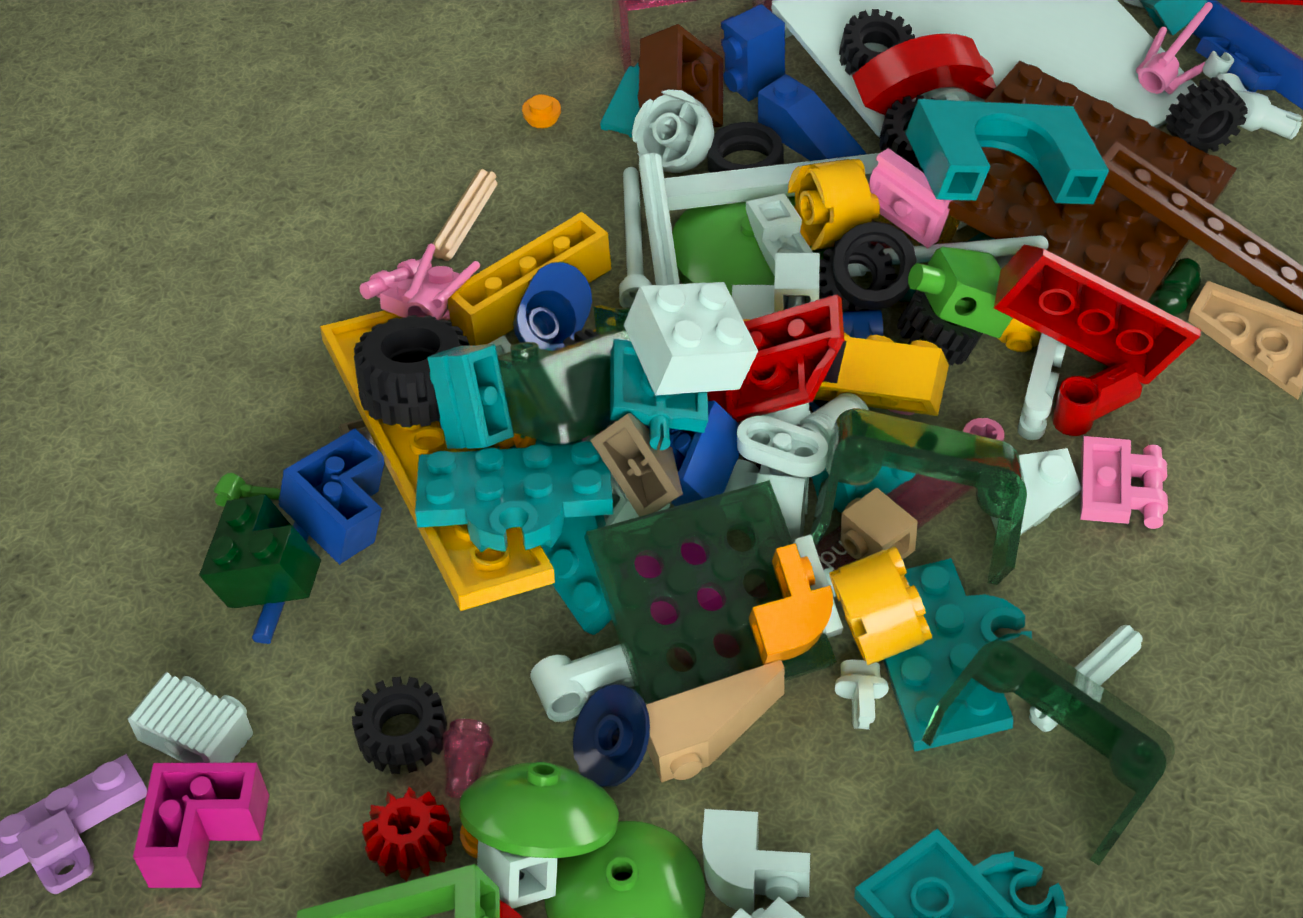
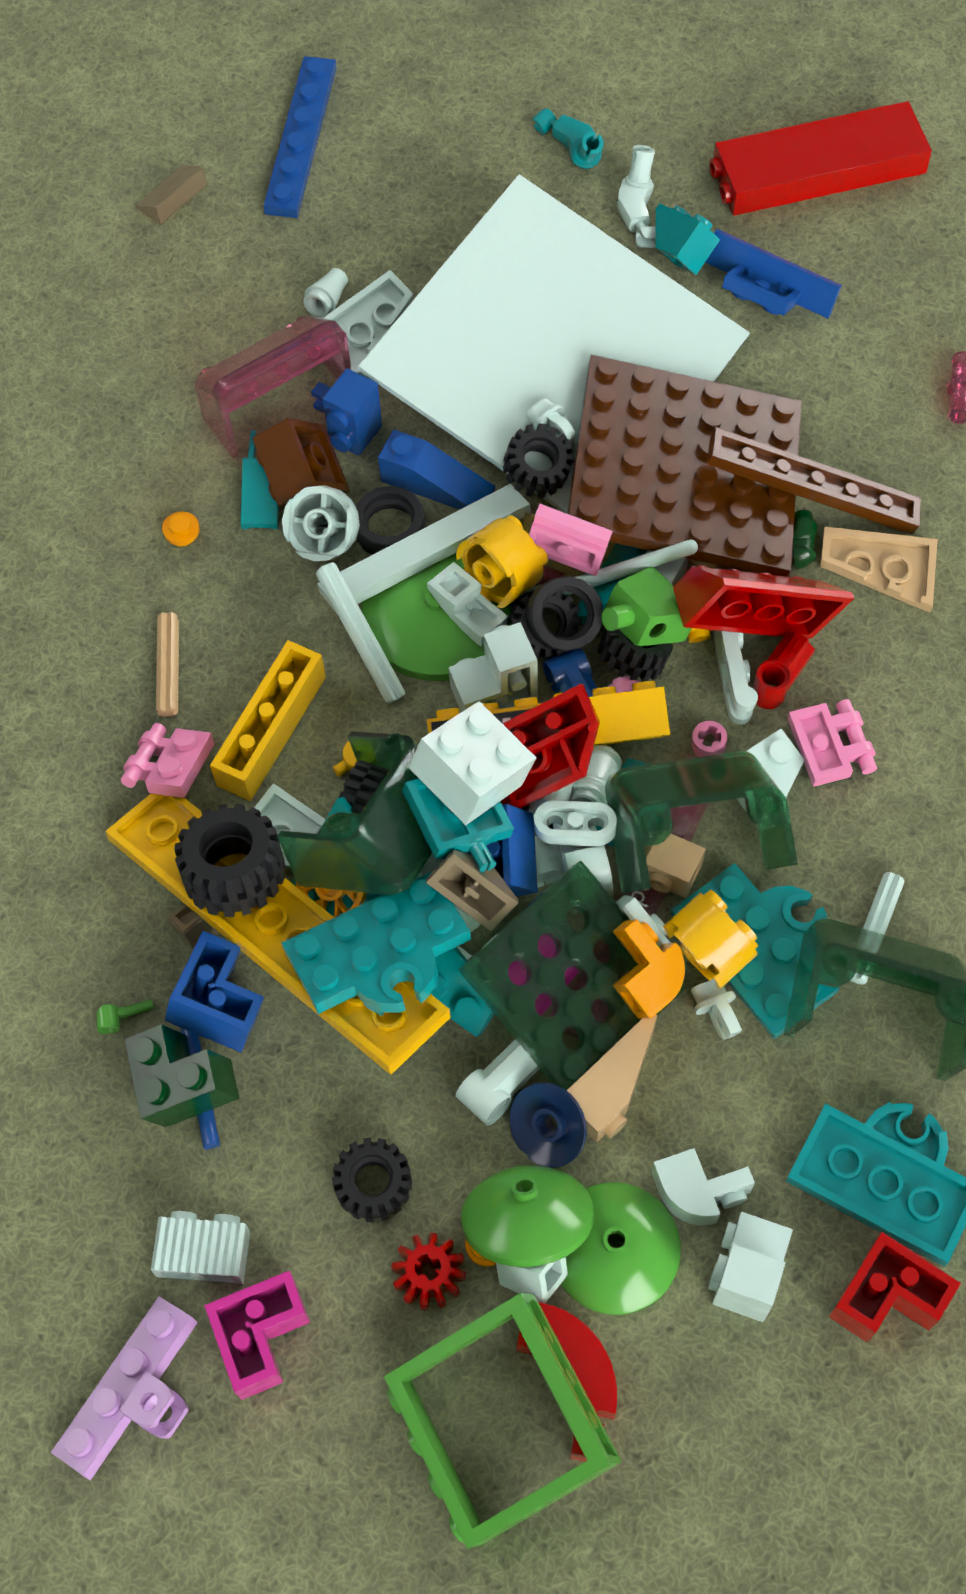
camera: 25 degrees left, 15 degrees up
(432, 300) = (200, 779): bright pink plant -> none
(465, 754) = (439, 1186): clear pink cone -> none
(470, 396) = (305, 877): teal brick -> none
(553, 306) = (306, 747): blue piece -> none
(633, 235) = (359, 693): light aqua piece -> none
(870, 30) = (476, 367): black tyre -> none
(921, 67) = (522, 400): red arch -> none
(1050, 137) = (655, 440): teal arch -> none
(1160, 70) = (707, 324): bright pink plant -> none
(1207, 115) = (762, 359): black tyre -> none
(1260, 111) = (783, 337): light aqua arm -> none

